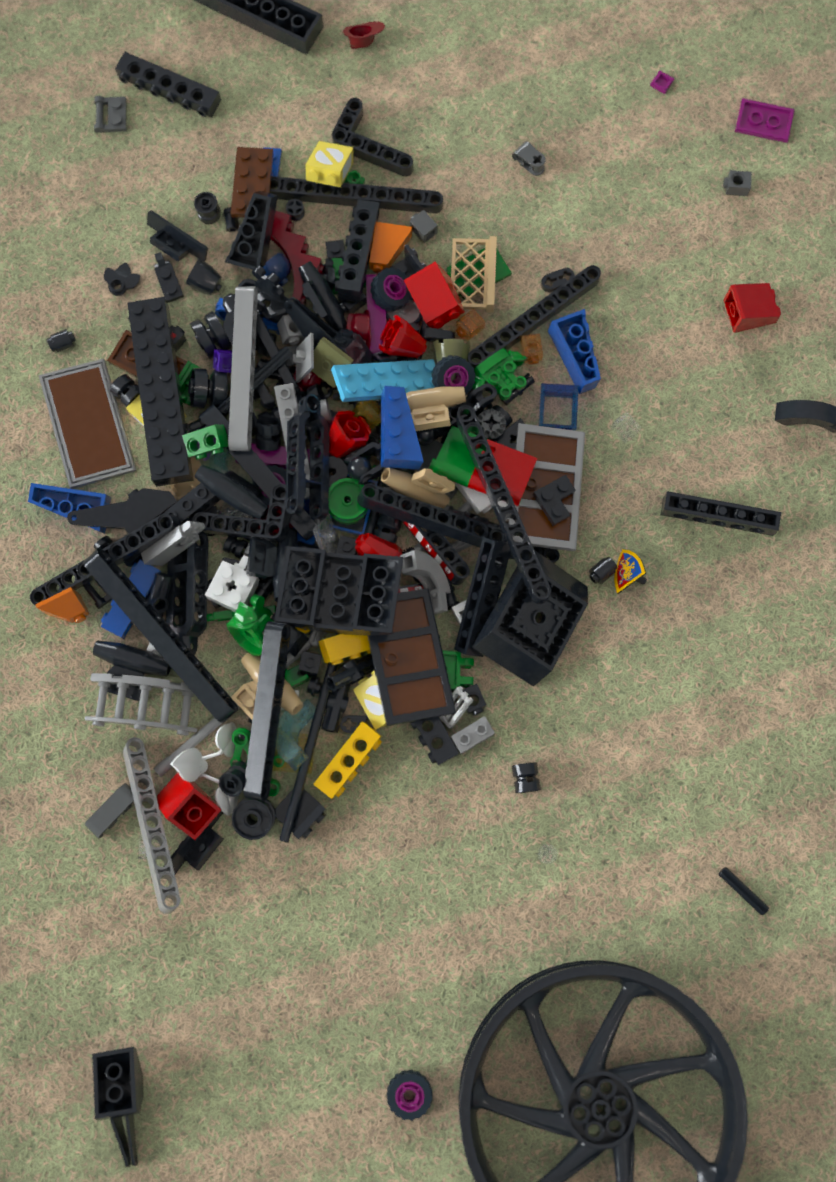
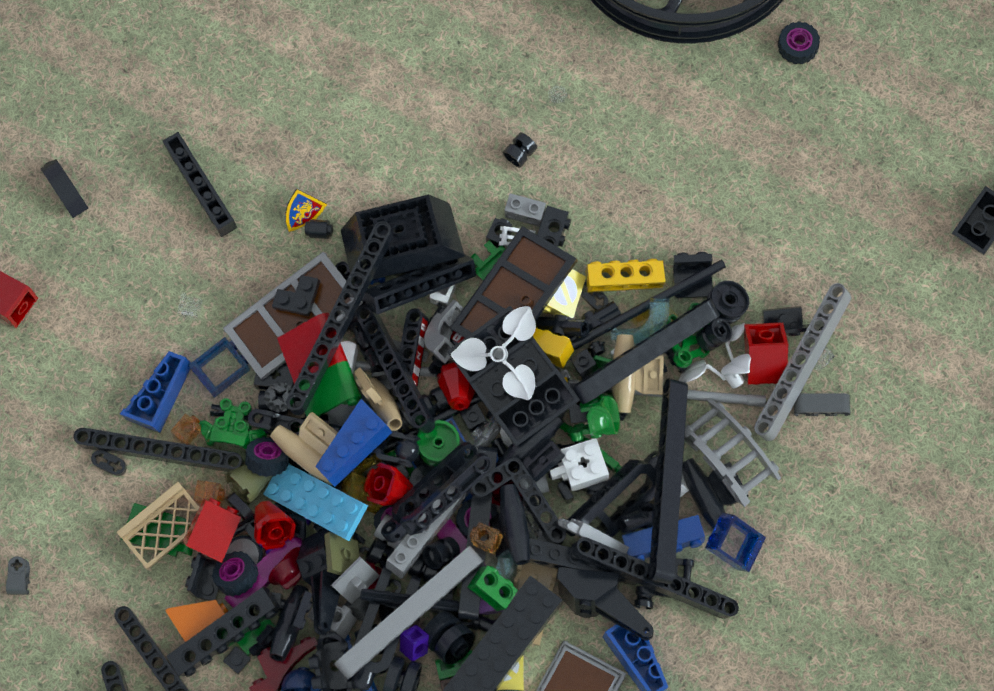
camera: 130 degrees left, 5 degrees down
(62, 640) = (749, 548): none -> clear blue window
(65, 605) = (718, 580): orange slope -> none
(235, 546) = (551, 497): black wheel -> none
(239, 473) = (490, 545): none -> clear orange brick
(330, 586) = (472, 355): none -> white plant
(423, 226) = (154, 606): dark grey brick -> none

